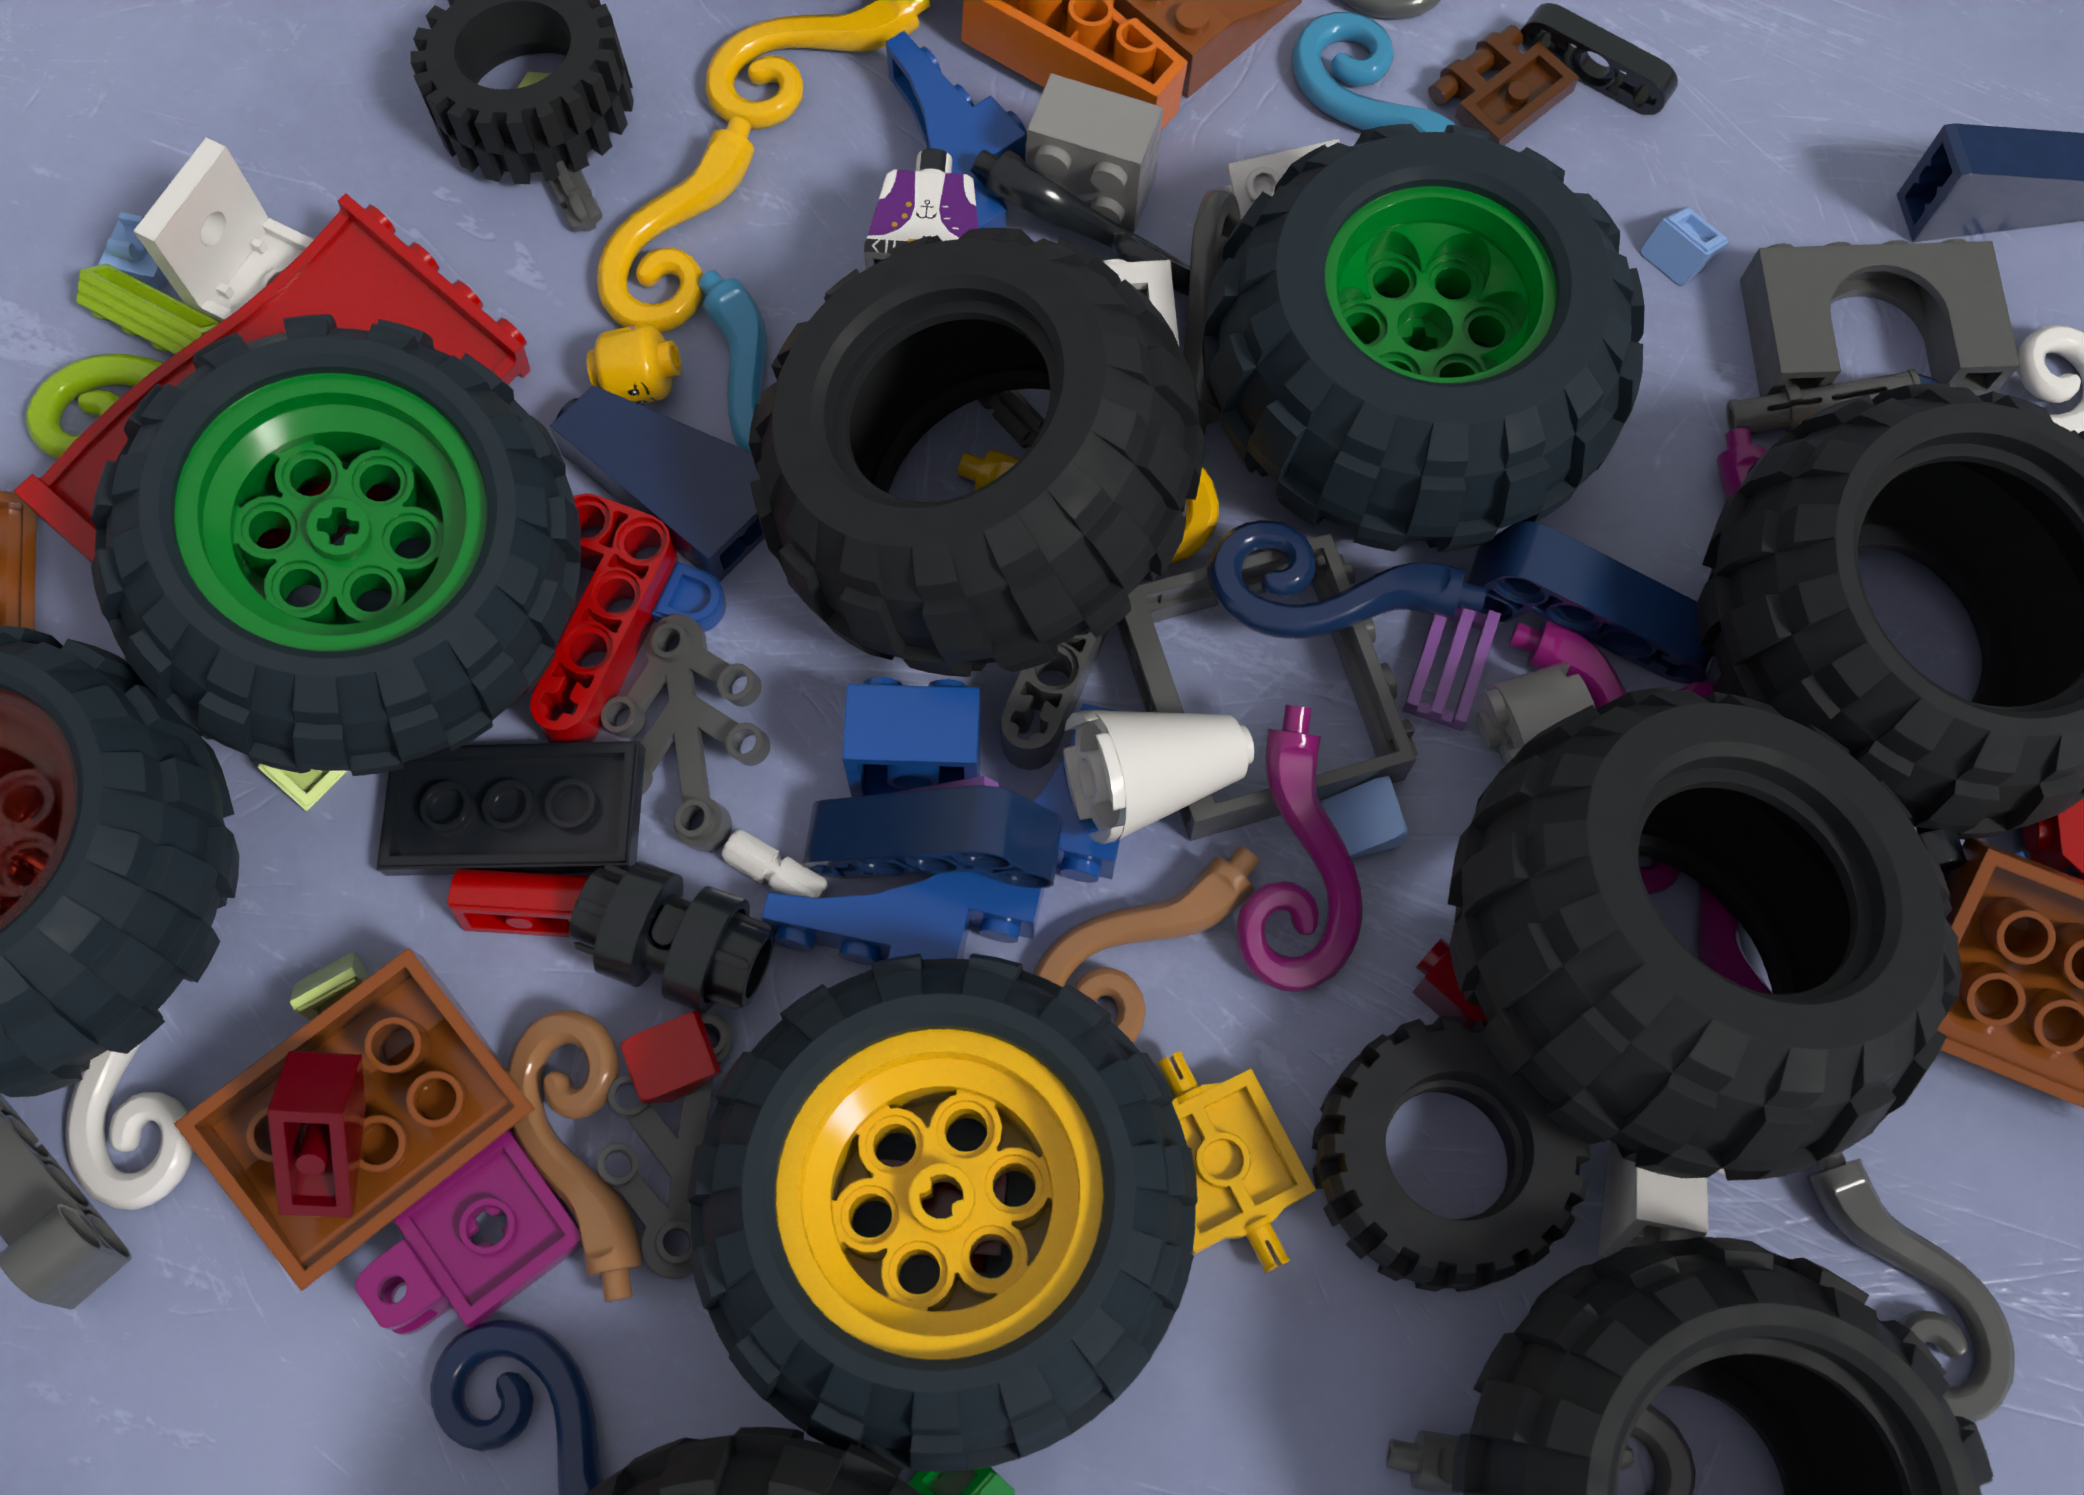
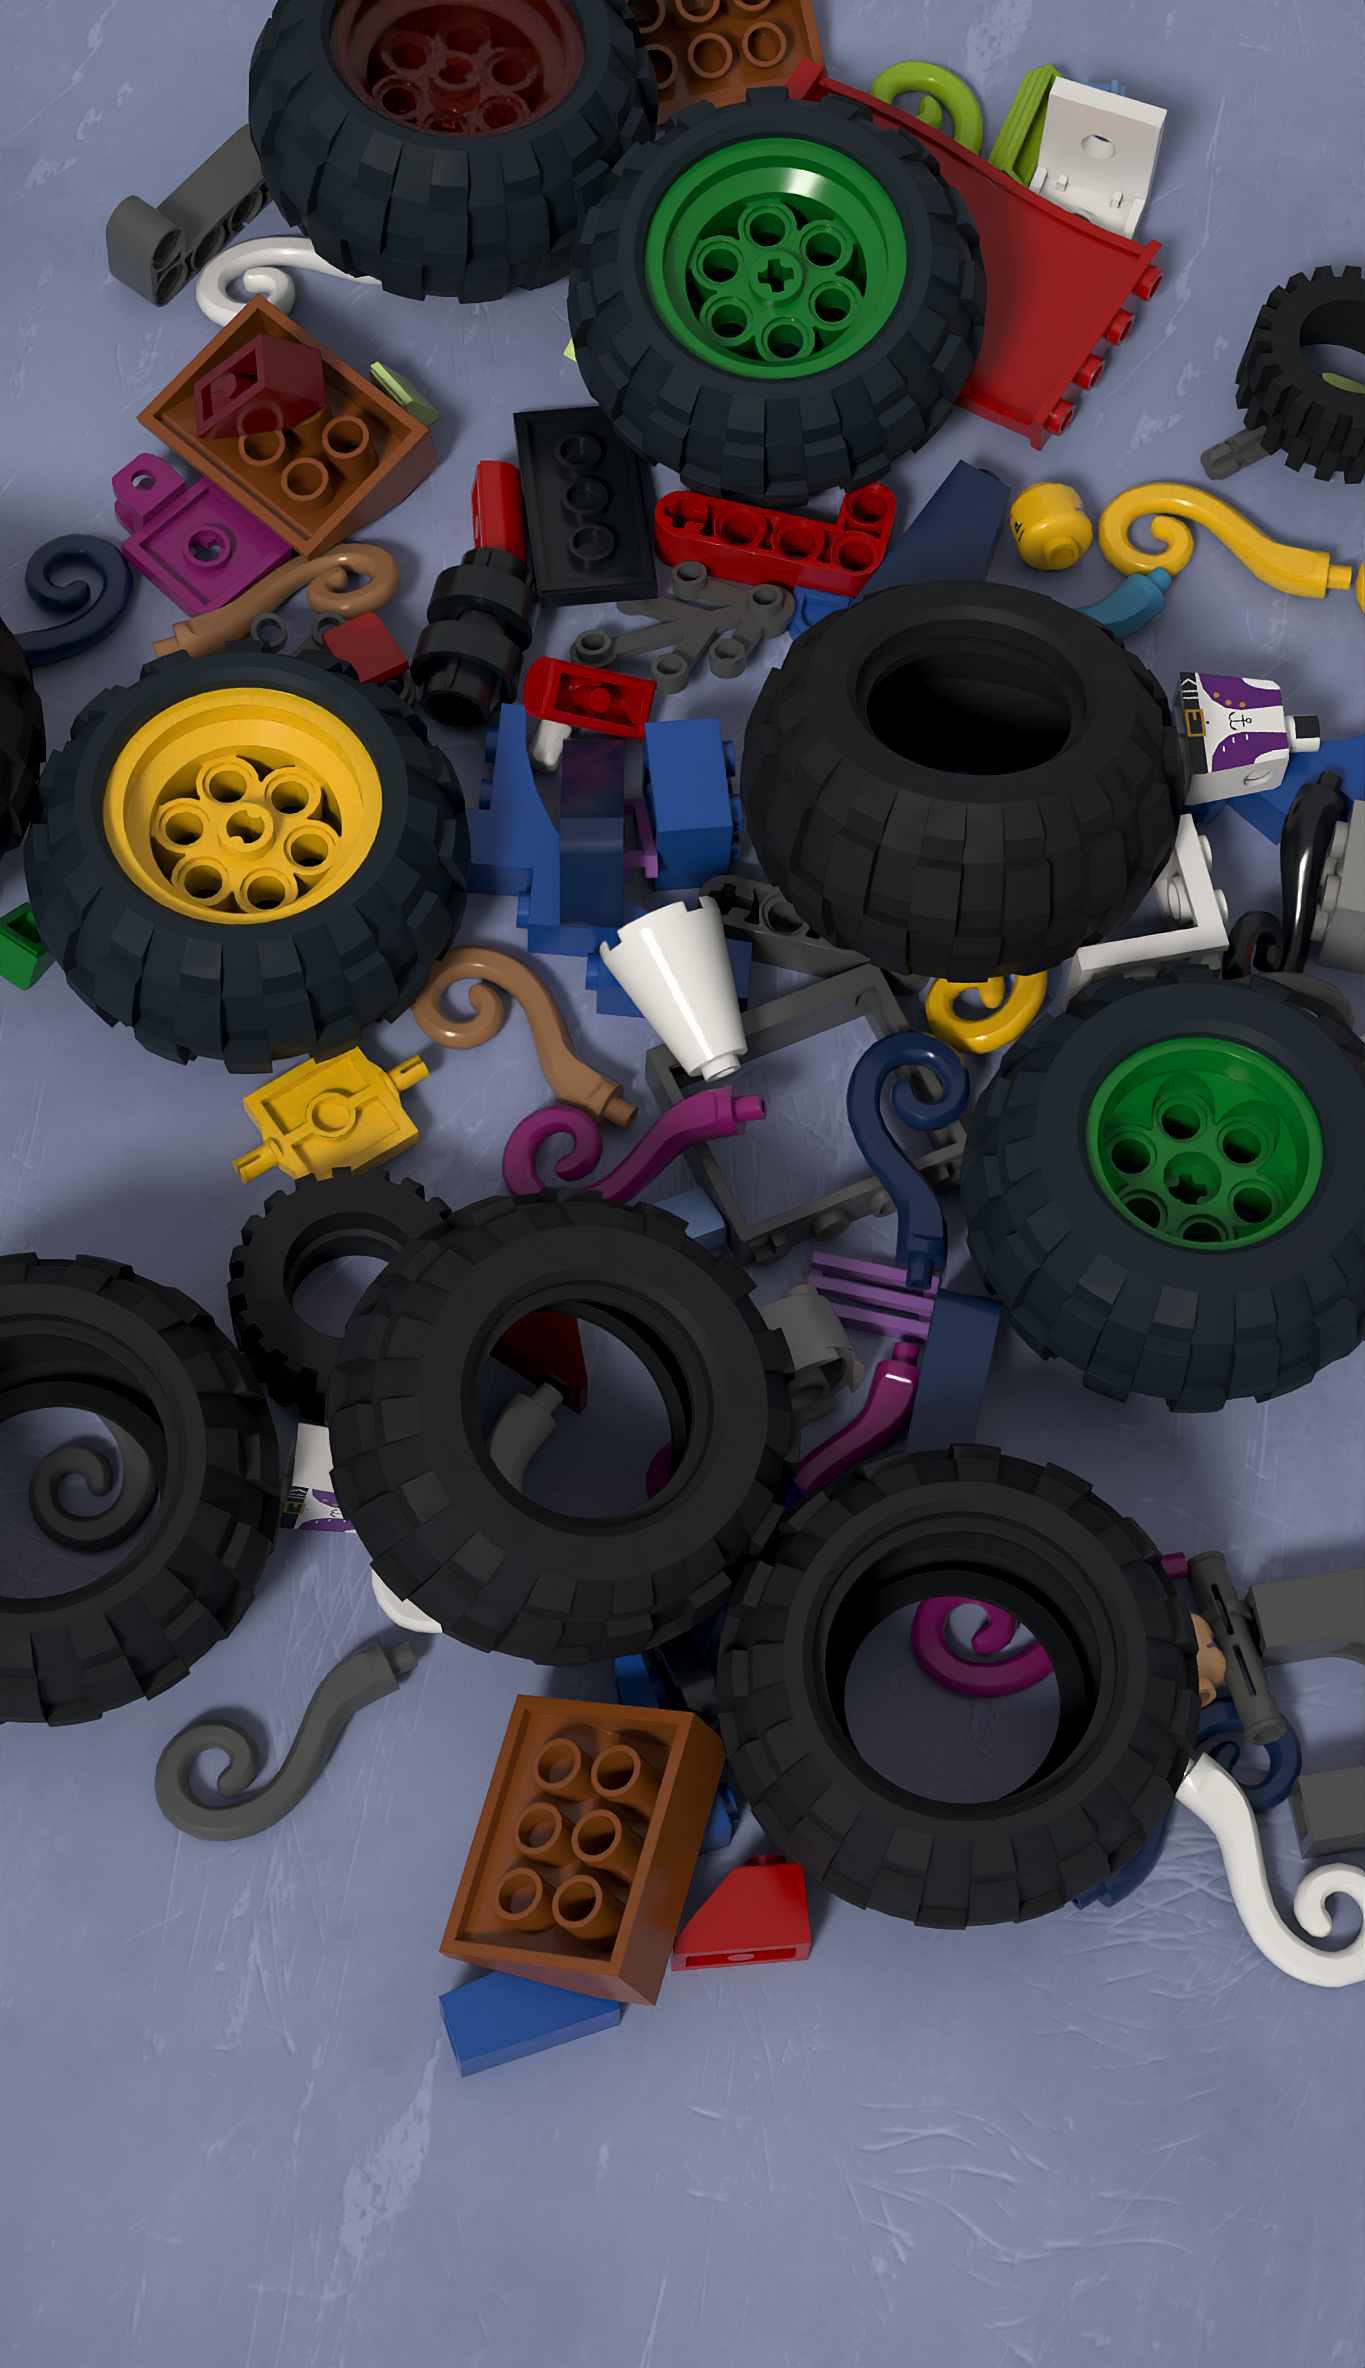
camera: 80 degrees right, 5 degrees down
(769, 829) = (588, 697): none -> red brick

